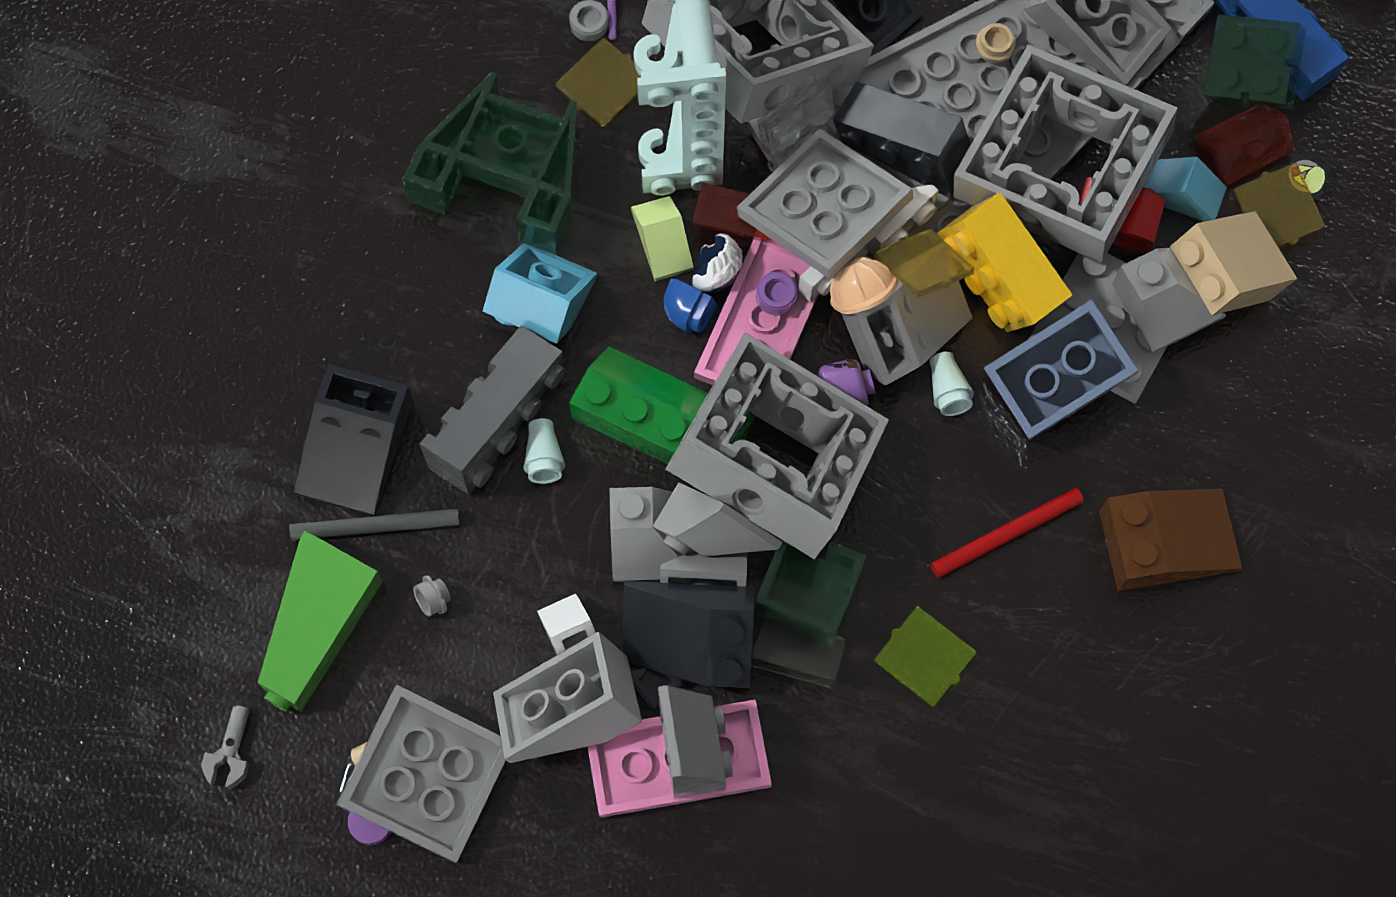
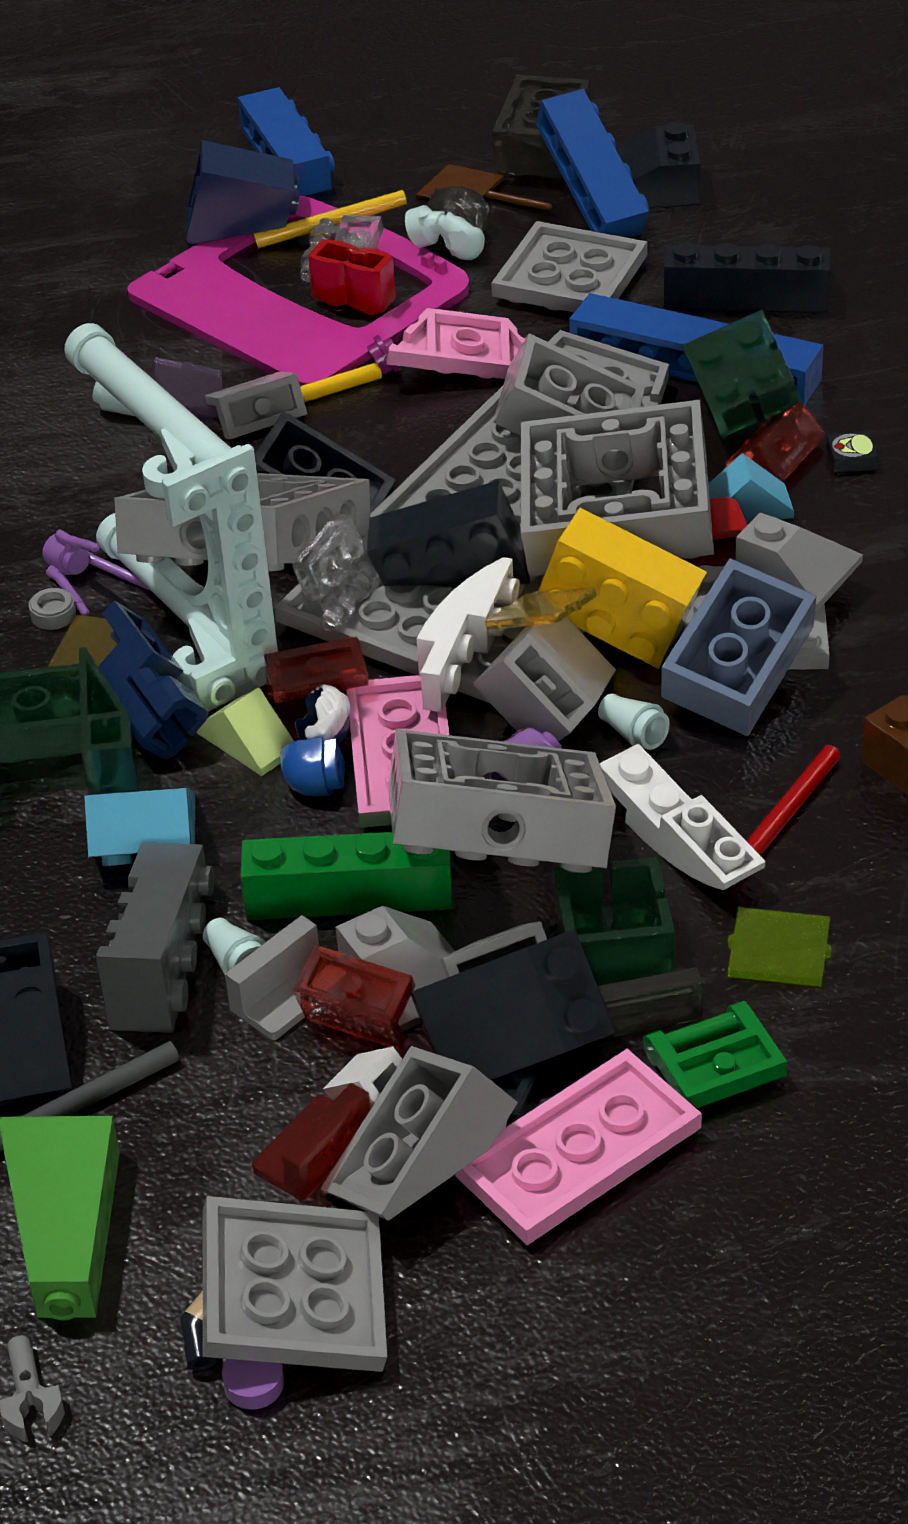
camera: 25 degrees left, 30 degrees down
(432, 596) = (189, 1129): light grey plate -> none
(507, 651) = (313, 1142): none -> clear red panel
(563, 500) = (264, 981): none -> light grey panel
(593, 551) = (354, 996): none -> clear red panel
(606, 148) = (146, 684): none -> dark blue plate
(693, 742) = (583, 1089): light grey slope -> none
(709, 526) = (472, 897): light grey slope -> none
(776, 293) = (402, 712): medium lavender tile -> none
(816, 747) = (719, 1066): none -> green plate
(825, 203) = (405, 604): light grey plate -> none
(861, 285) = (485, 647): light nougat piece -> none
(917, 510) = (674, 825): none -> white slope
(995, 43) = (484, 456): tan plate -> none
(1233, 262) = (838, 510): tan brick -> none
(1282, 204) = (846, 475): clear yellow piece -> none

